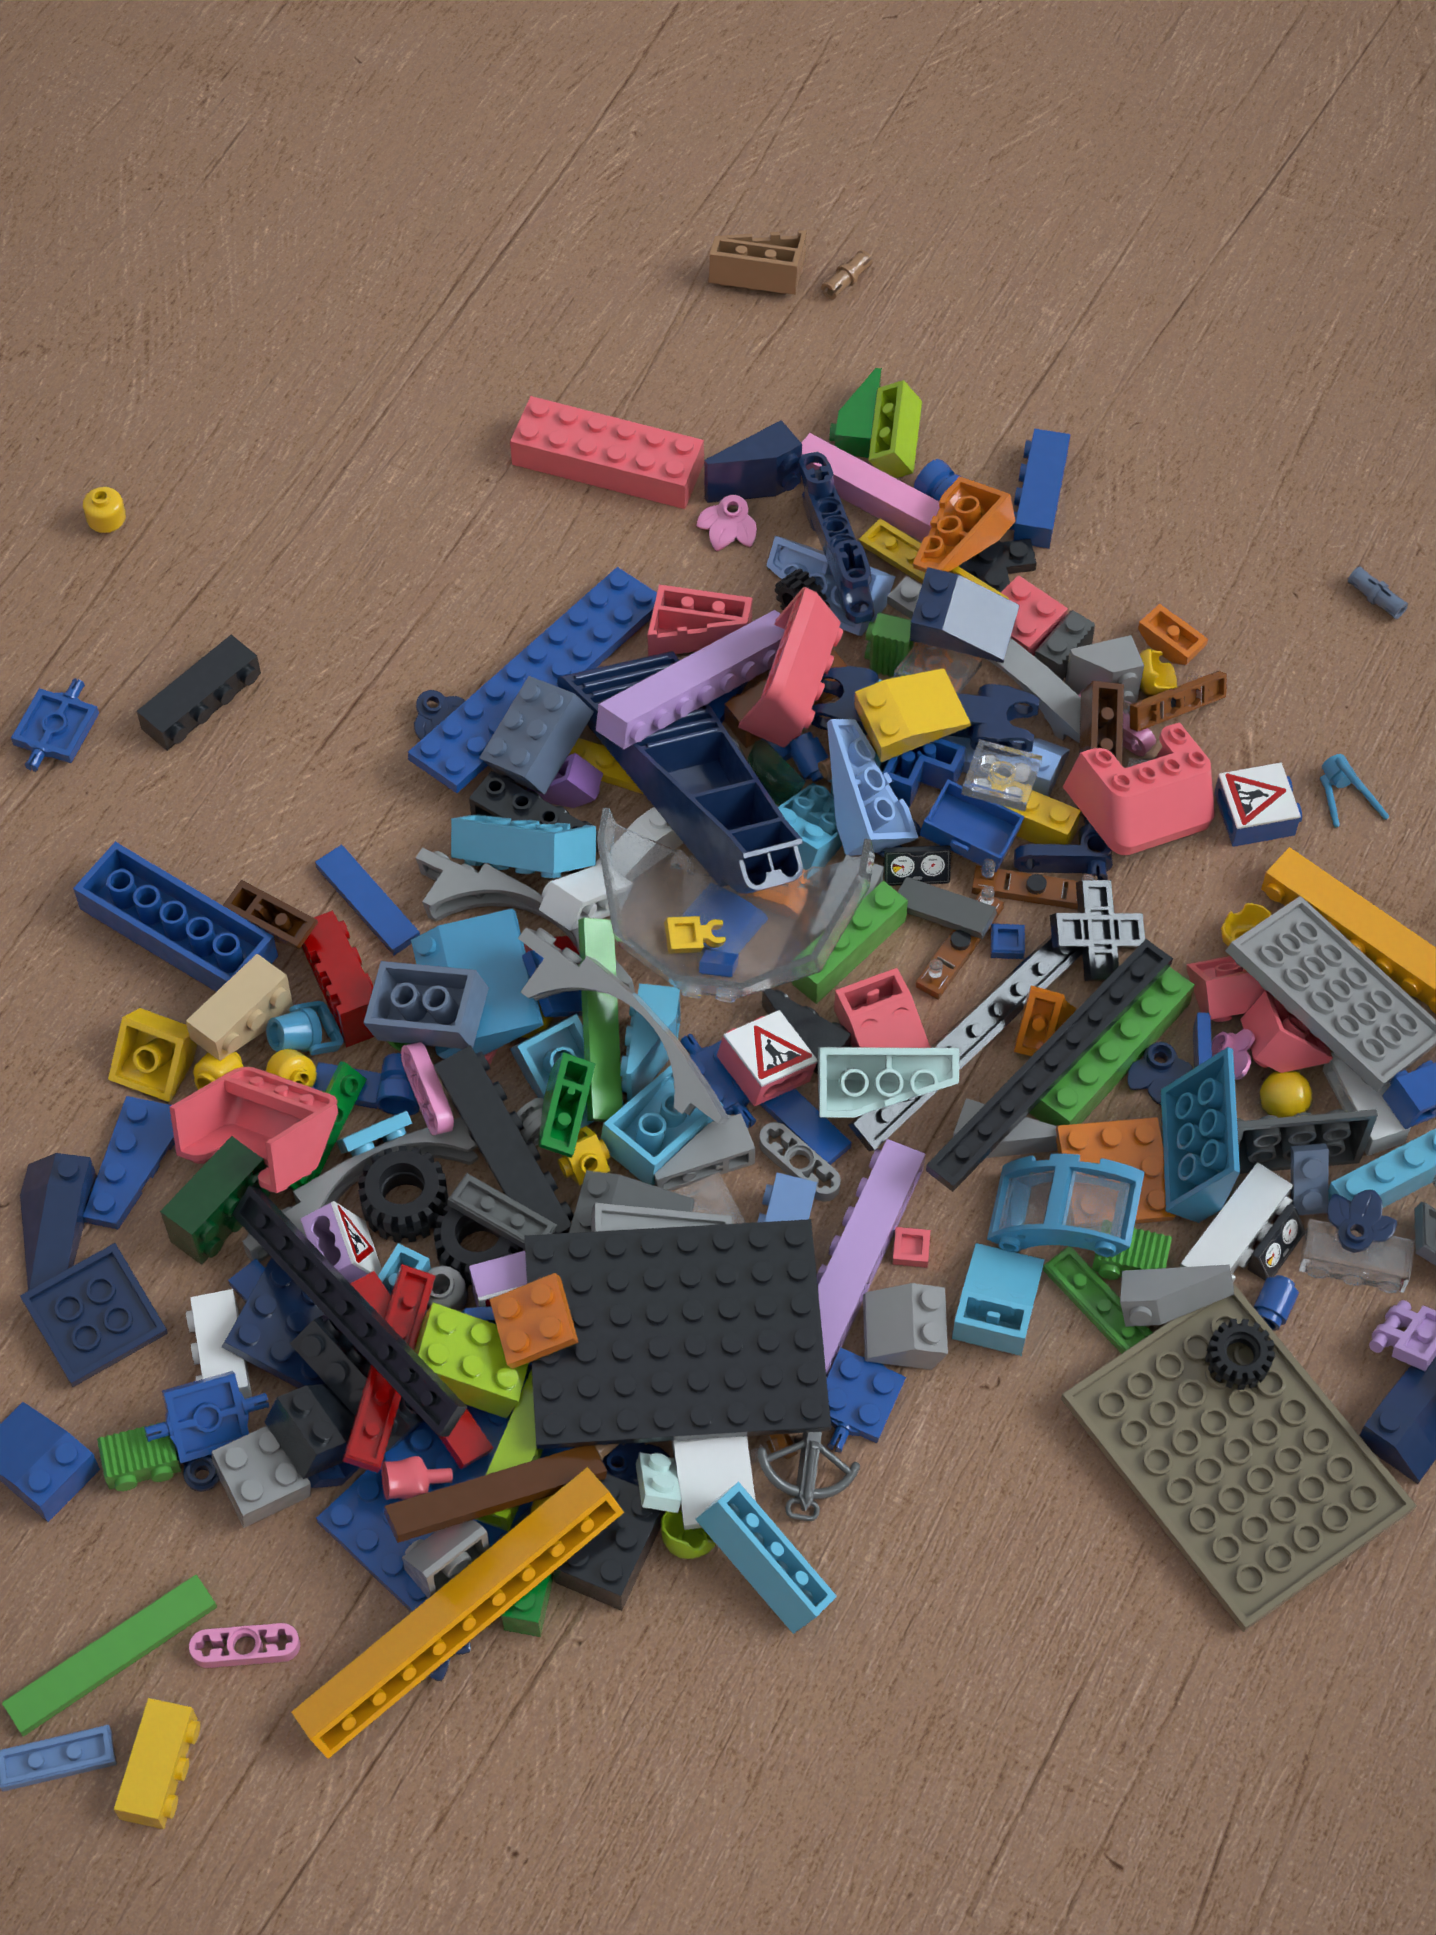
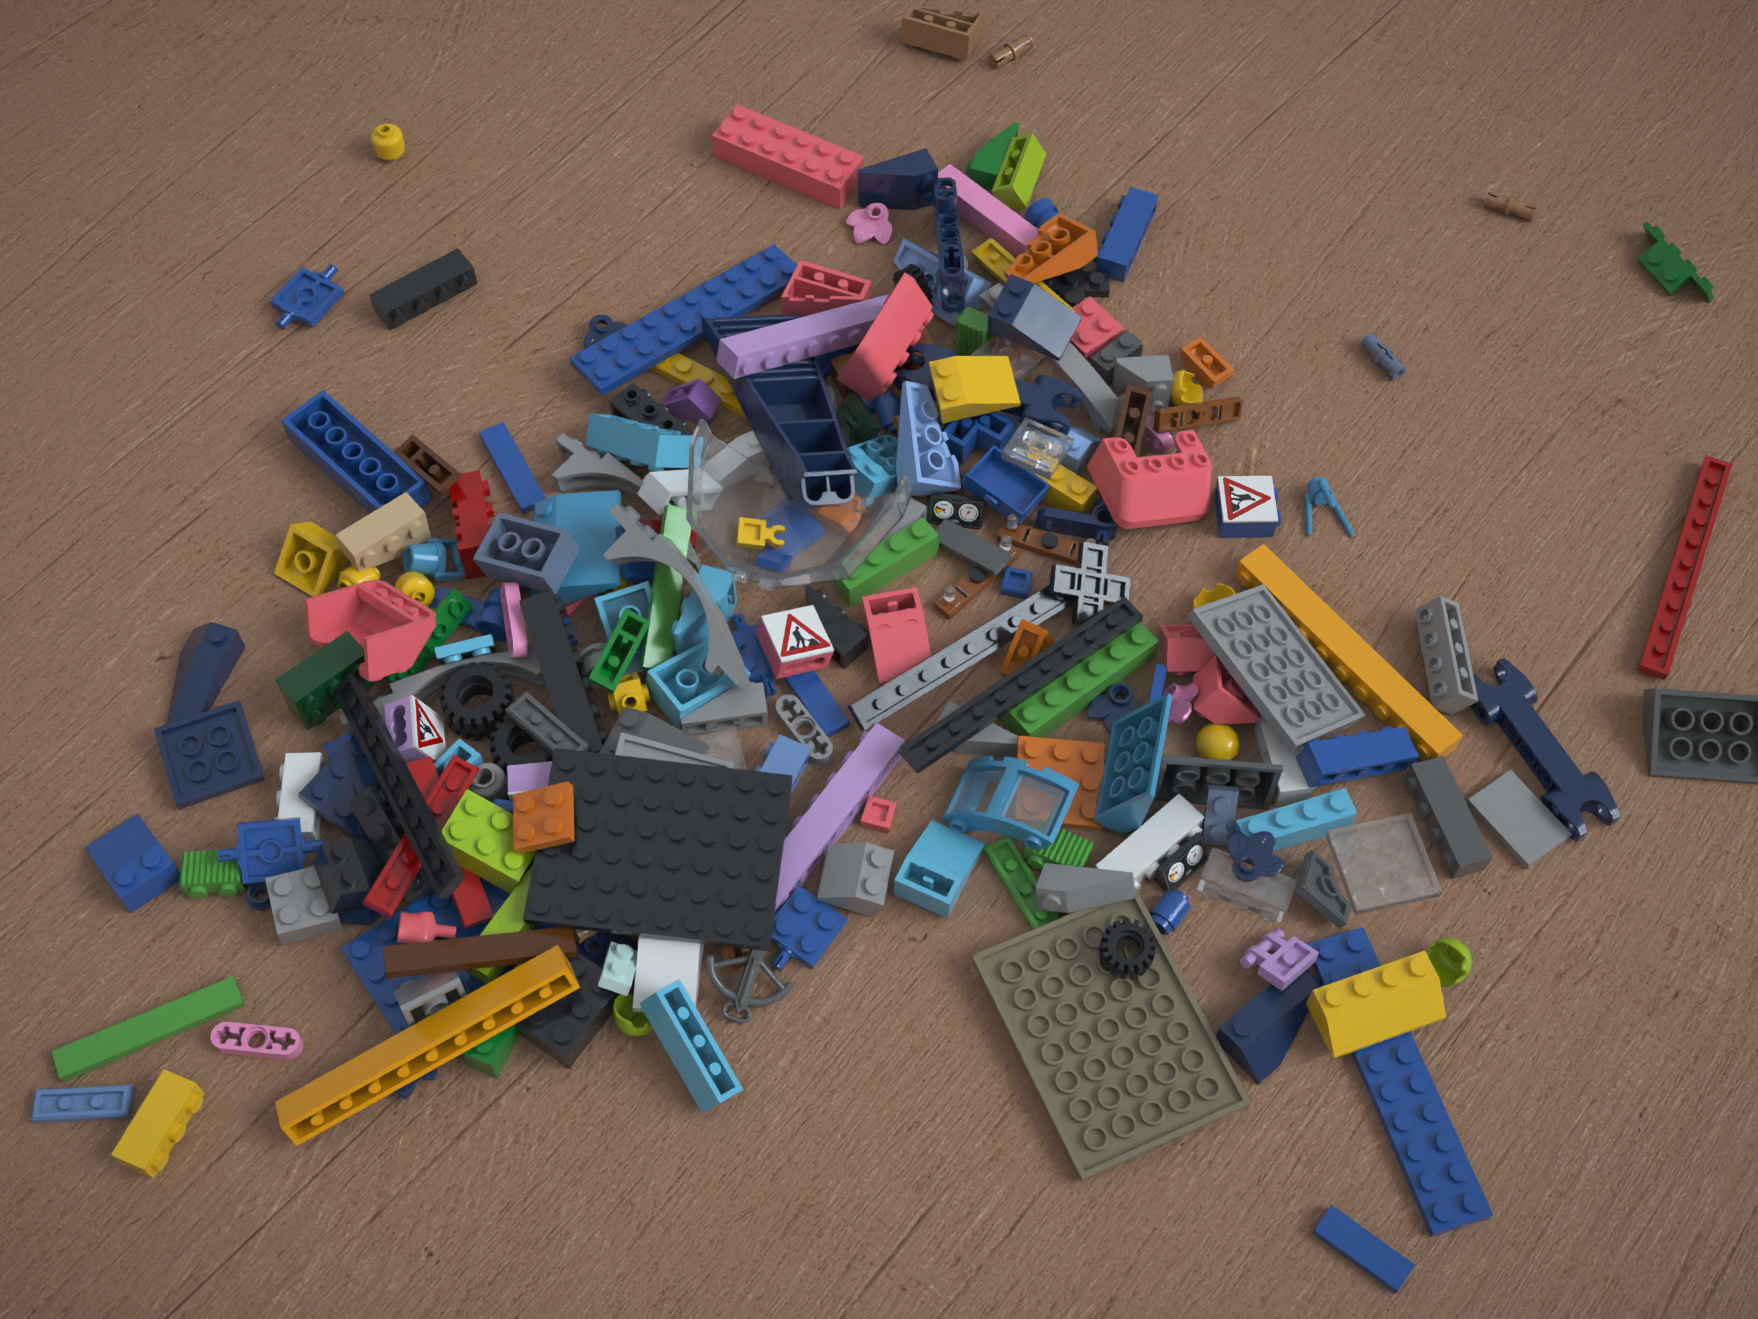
camera: 10 degrees right, 0 degrees up
(132, 1157) = (271, 640): blue wing -> none
(536, 734) = (673, 359): sand blue brick -> none
(872, 1078) = (875, 671): light aqua wedge -> none

